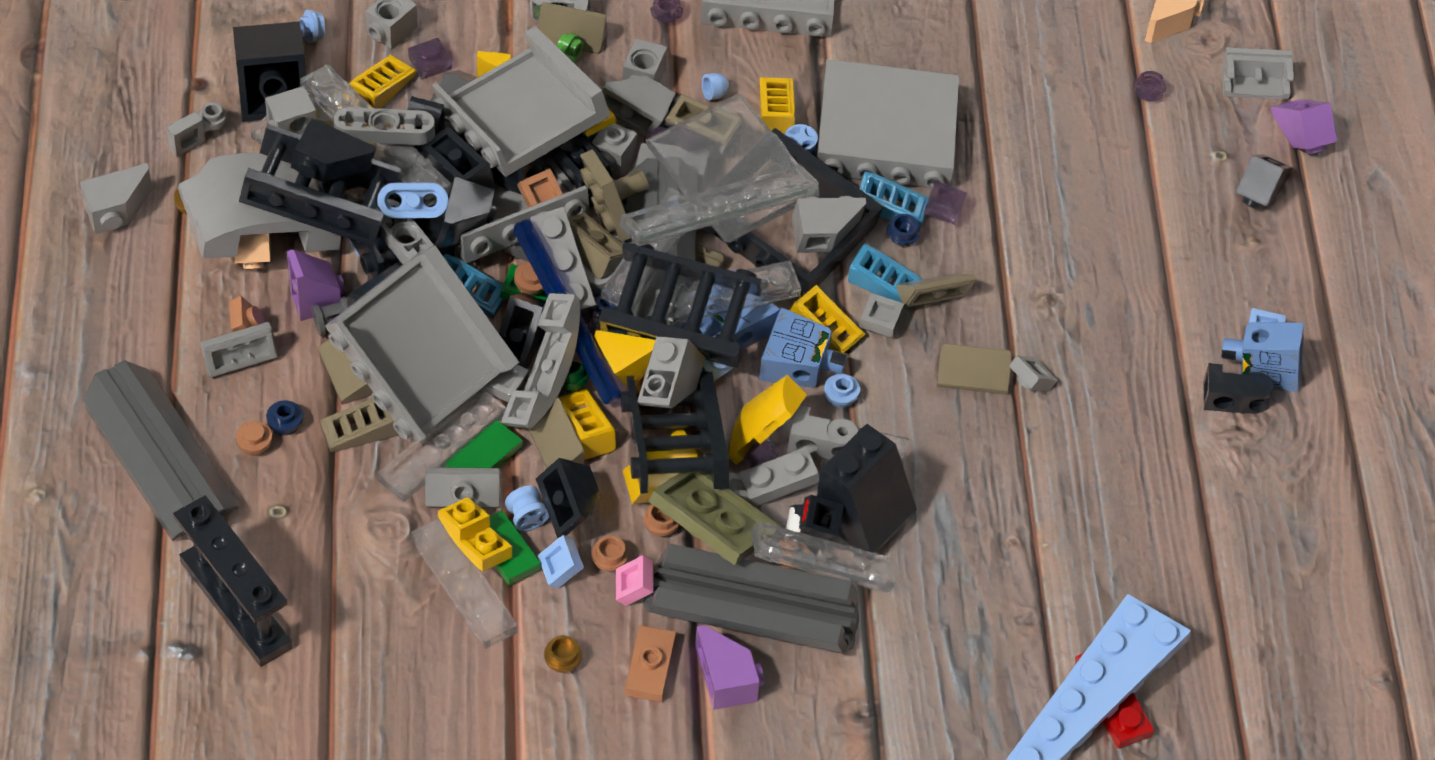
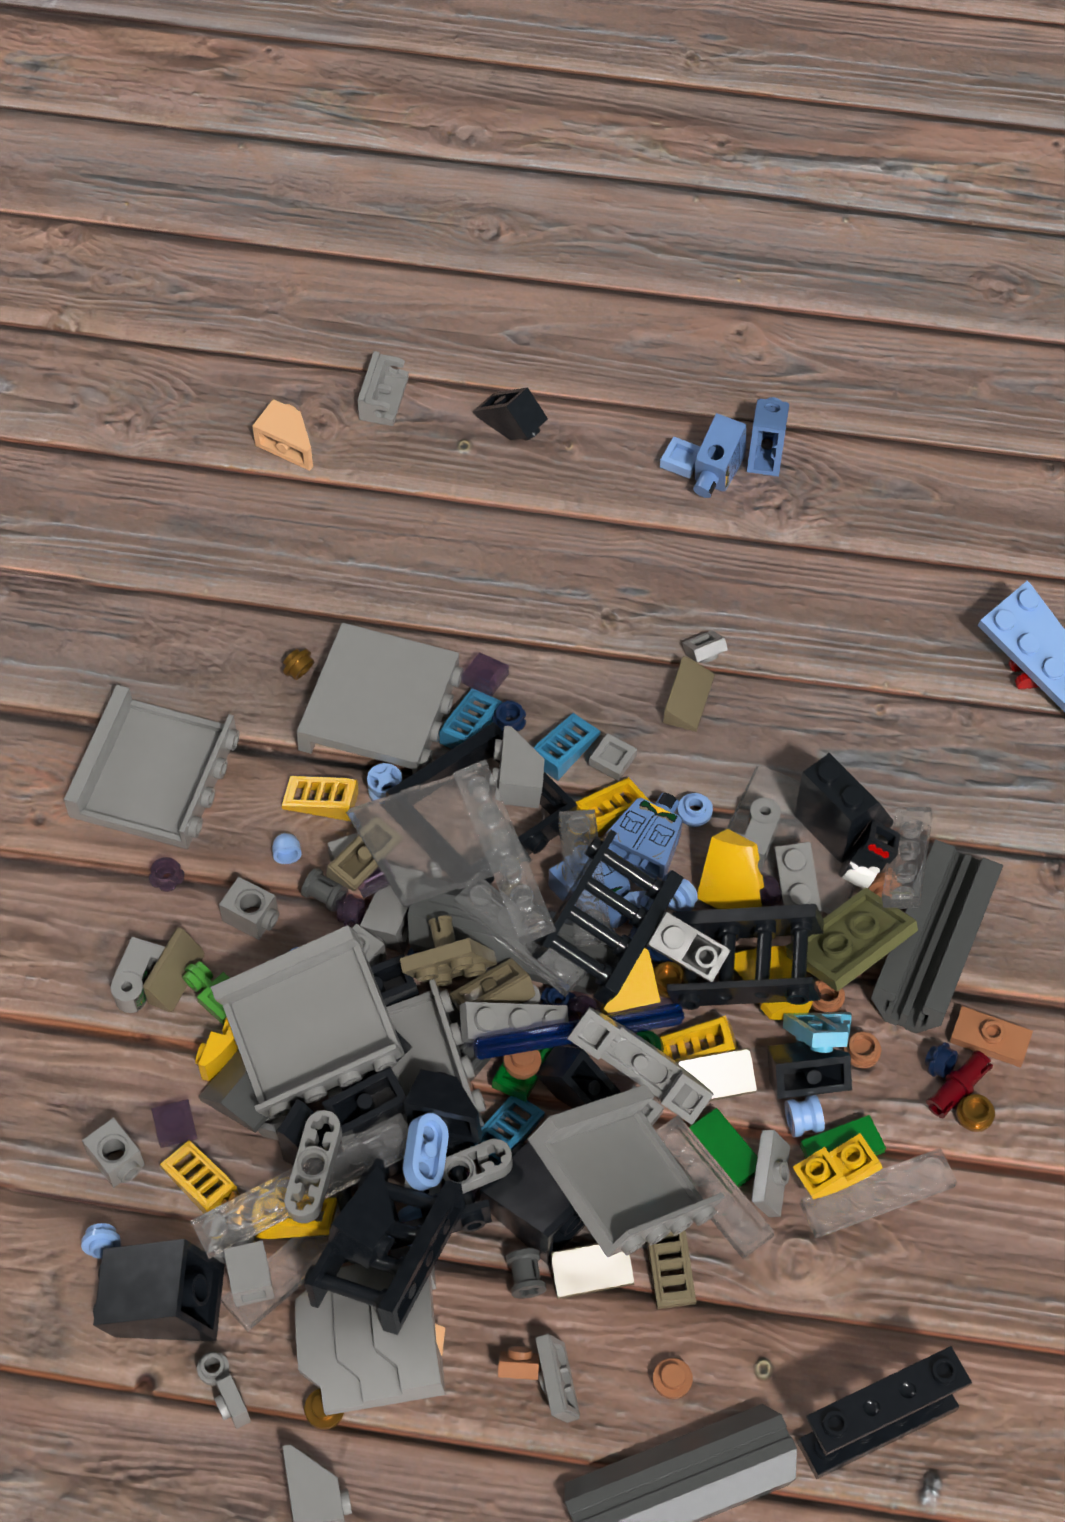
camera: 75 degrees left, 5 degrees up
(288, 424) = (645, 1353): dark blue plate -> none
(312, 283) = (490, 1285): medium lavender slope -> none
(539, 188) = (423, 1027): nougat plate -> none
(560, 561) = (872, 1094): light blue plate -> none
(589, 635) = (959, 1084): none -> dark red pin
(611, 619) = (941, 1060): none -> dark blue plate
(614, 503) = (820, 1030): none -> medium azure wing
(634, 580) = (902, 1031): bright pink plate -> none
(638, 102) = (305, 915): light grey slope -> none
(727, 669) = (1013, 968): medium lavender slope -> none
(739, 385) = (684, 898): none -> light blue plate
(912, 58) = (298, 663): none -> pearl gold plate
(935, 289) = (590, 702): dark tan slope -> none
(1150, 86) = (375, 470): clear purple plate -> none
(1235, 391) = (745, 507): black leg -> none
(1306, 124) = (451, 366): medium lavender slope -> none
(1317, 394) = (768, 423): none -> medium blue torso

